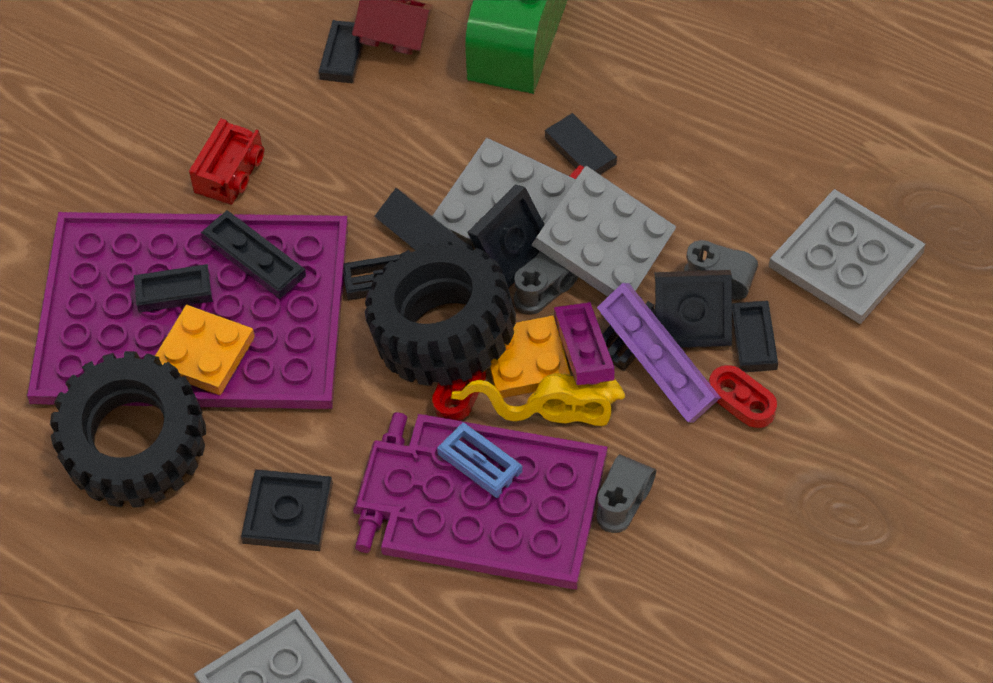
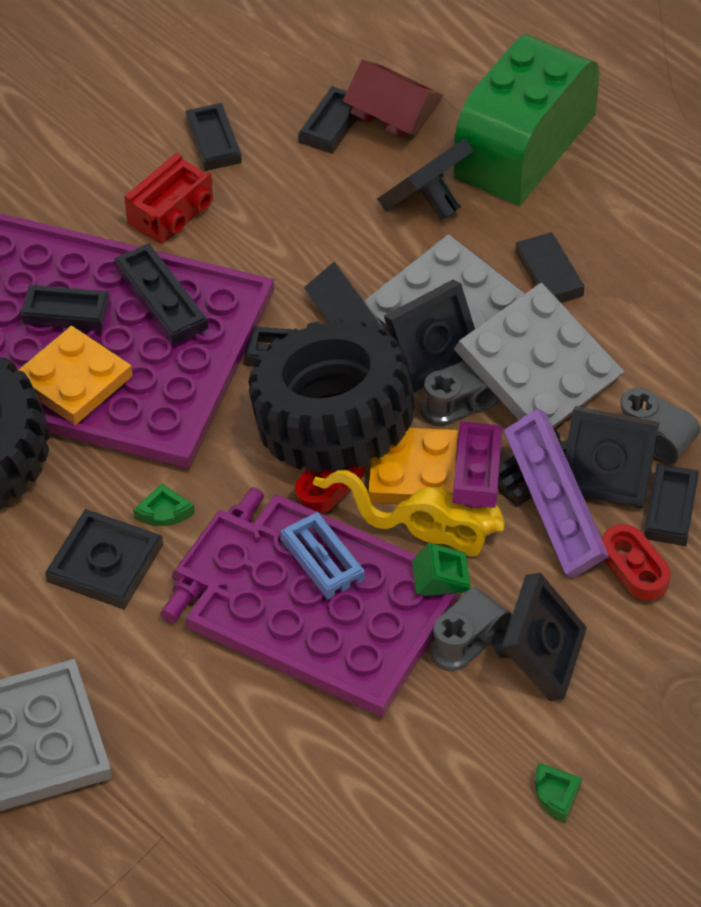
camera: 15 degrees right, 5 degrees down
(242, 92) = (213, 136): none -> black tile
(322, 450) = (163, 508): none -> green tile
(450, 91) = (430, 183): none -> black tile
(585, 448) = (440, 571): none -> green slope
(690, 485) = (542, 637): none -> black tile
(742, 614) = (556, 790): none -> green tile

